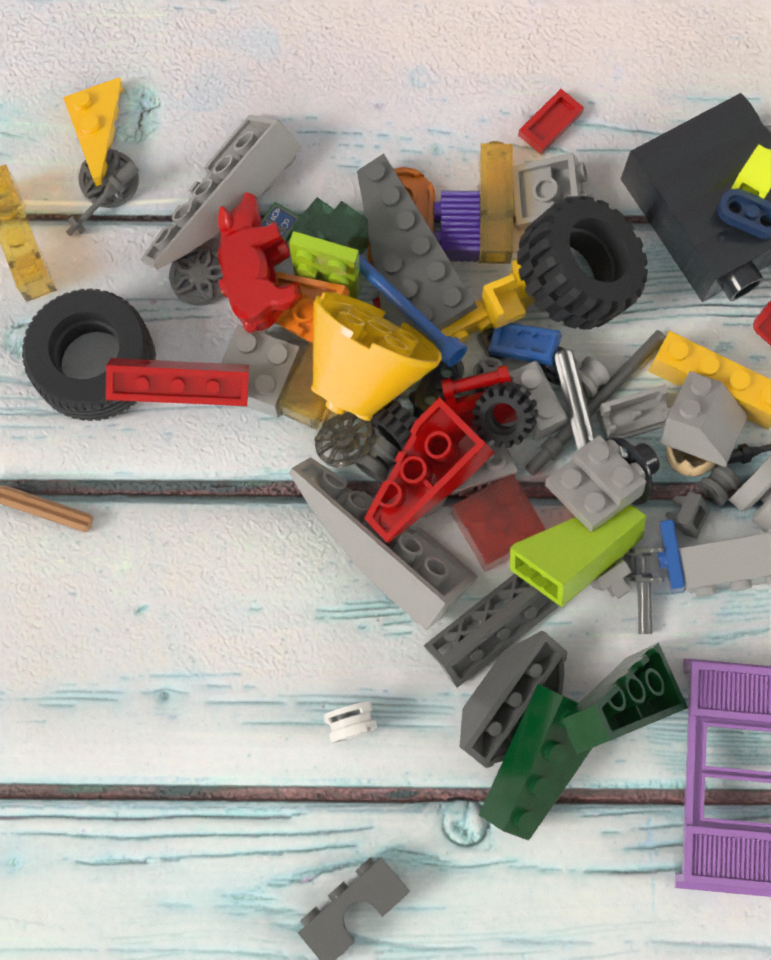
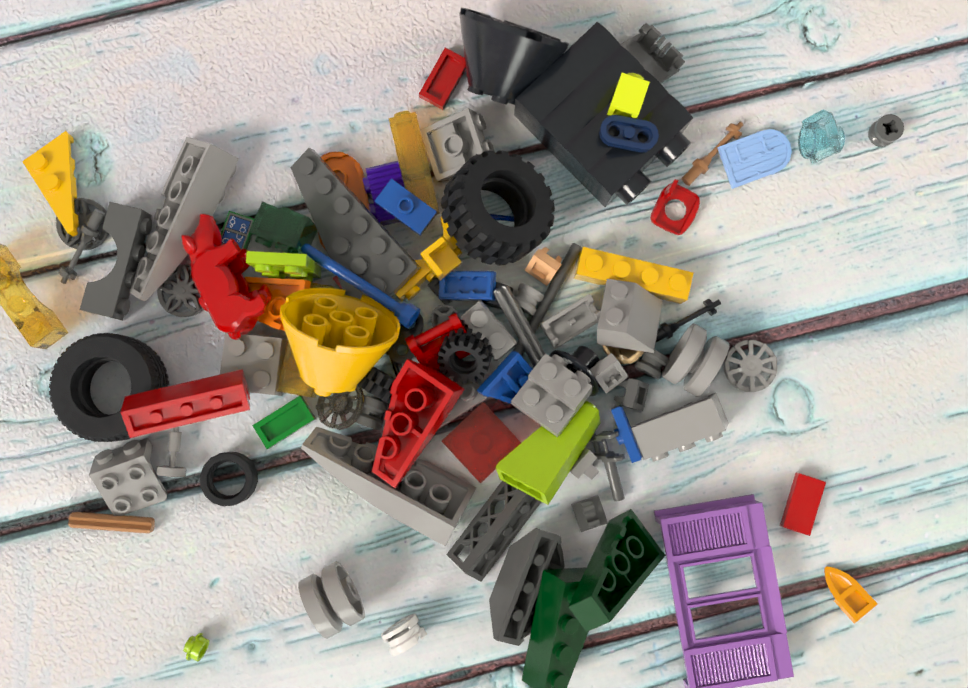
camera: 15 degrees left, 10 degrees up
(79, 463) = (127, 478): none -> light grey bracket
(100, 676) = (196, 647): none -> lime plate
(116, 258) = (111, 294): none -> dark grey arch
(131, 465) = (173, 447): none -> light grey wheel
(182, 469) = (213, 494): none -> black tyre
(273, 446) = (284, 422): none -> green tile
(278, 655) = (331, 600): none -> light grey wheel
(477, 240) = (406, 207): none -> blue plate
(545, 456) = (506, 378): none -> blue wing
(605, 641) = (589, 513): none -> dark grey tile
(616, 346) = (543, 266): none -> light nougat tile
(628, 102) = (504, 55): none -> black cone
(668, 479) = (609, 373): none -> light grey bracket

